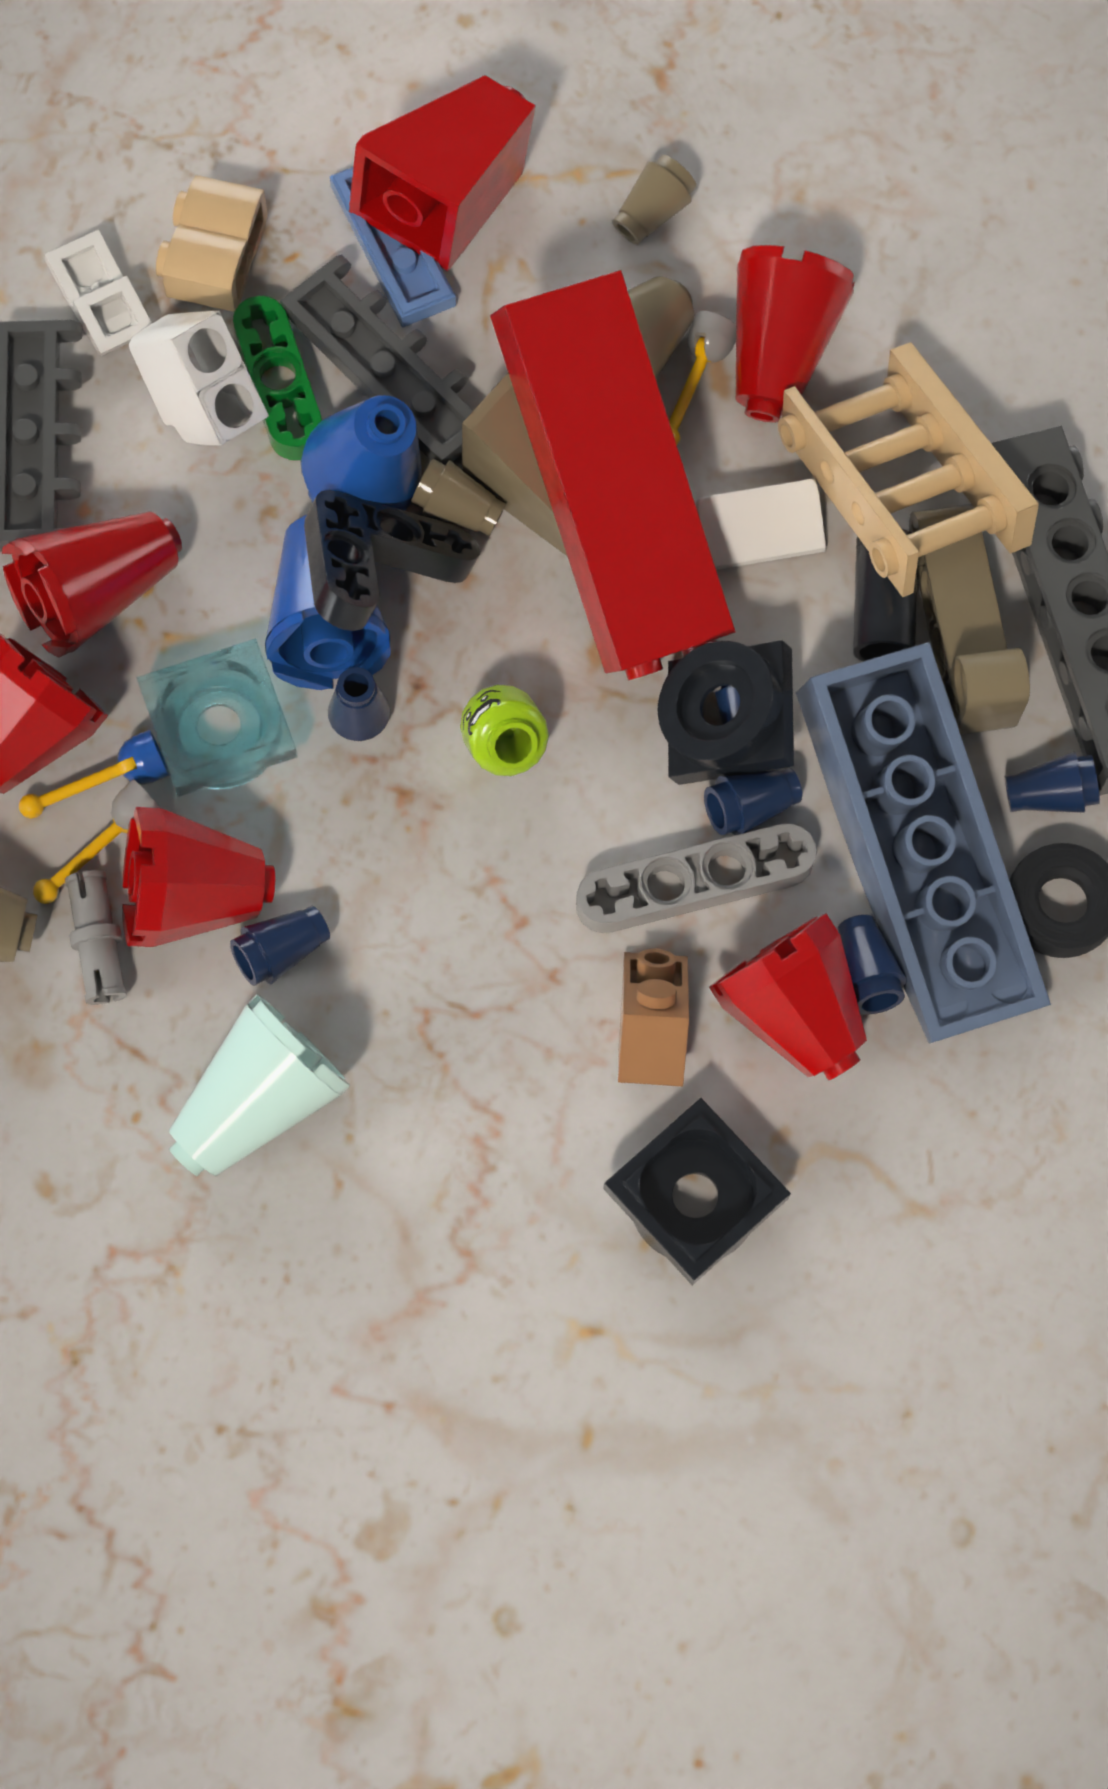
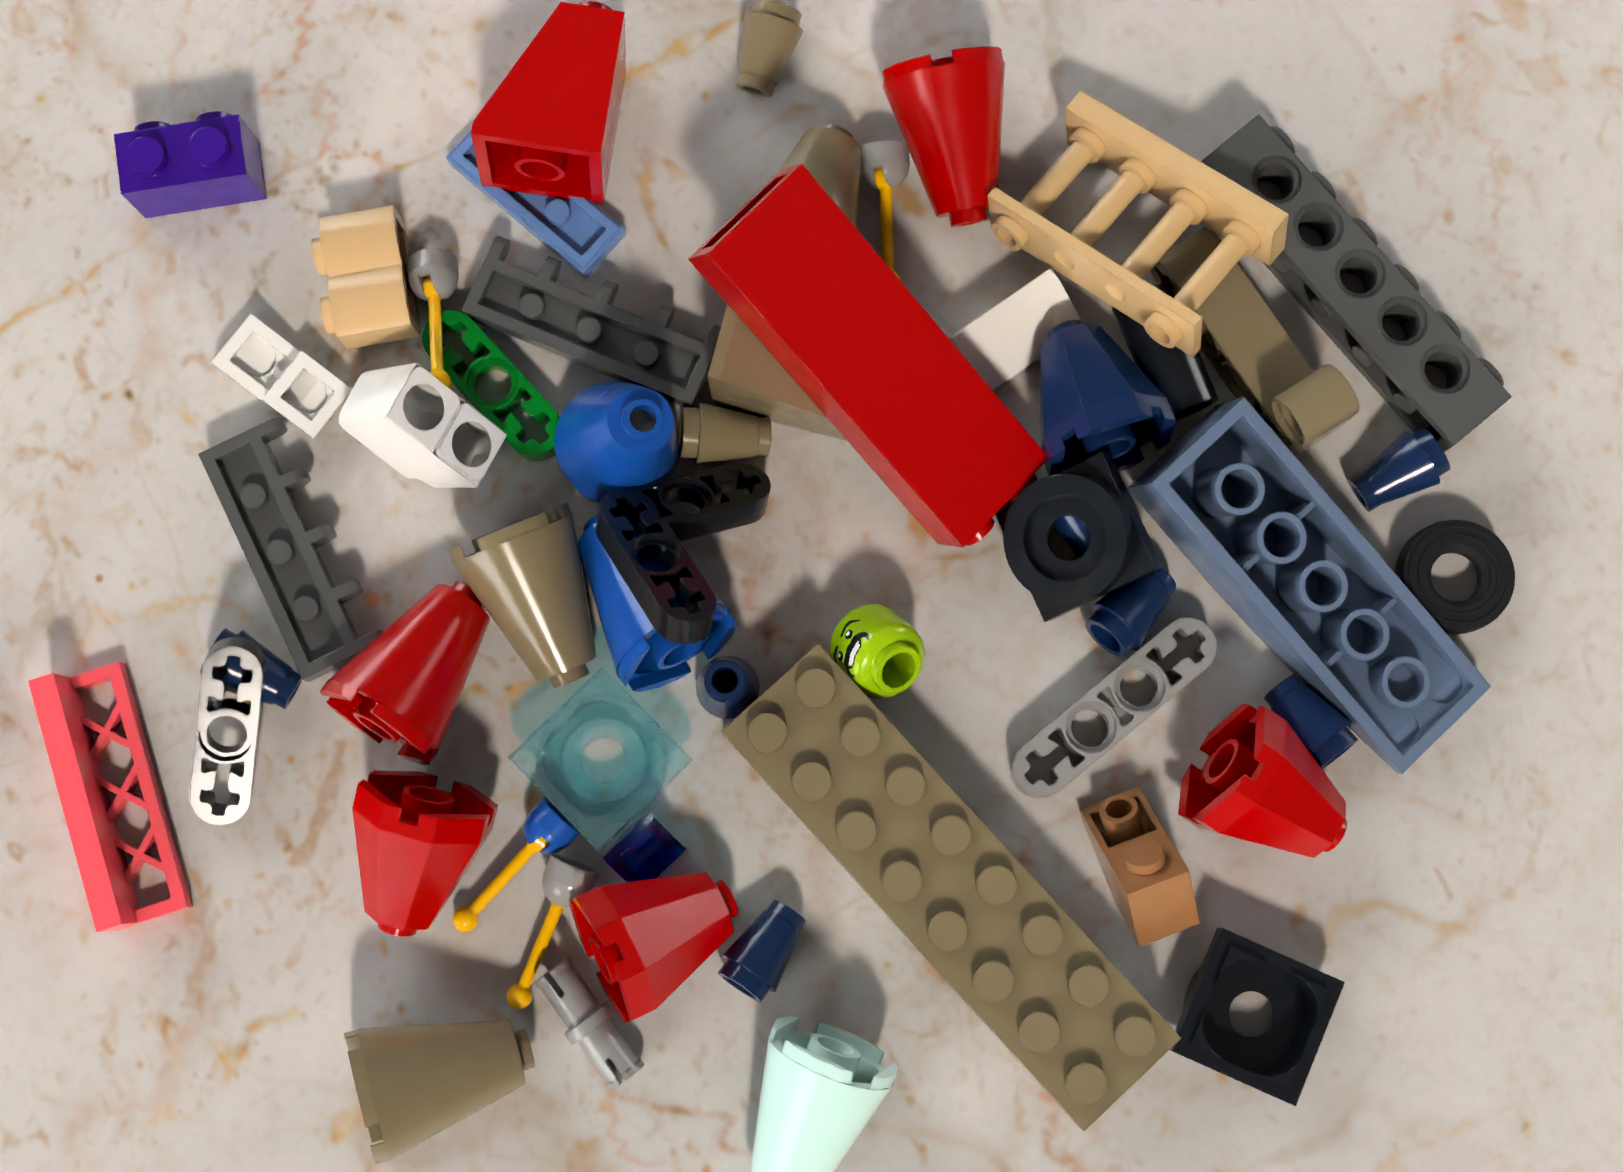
camera: 20 degrees left, 10 degrees up
(107, 90) = (190, 165): none -> dark purple brick
(218, 808) = (643, 850): none -> clear blue slope
(228, 549) = (535, 592): none -> dark tan cone
(274, 274) = (434, 278): none -> hinge
(473, 958) = (951, 887): none -> dark tan brick
(805, 601) = (1096, 400): none -> dark blue cone

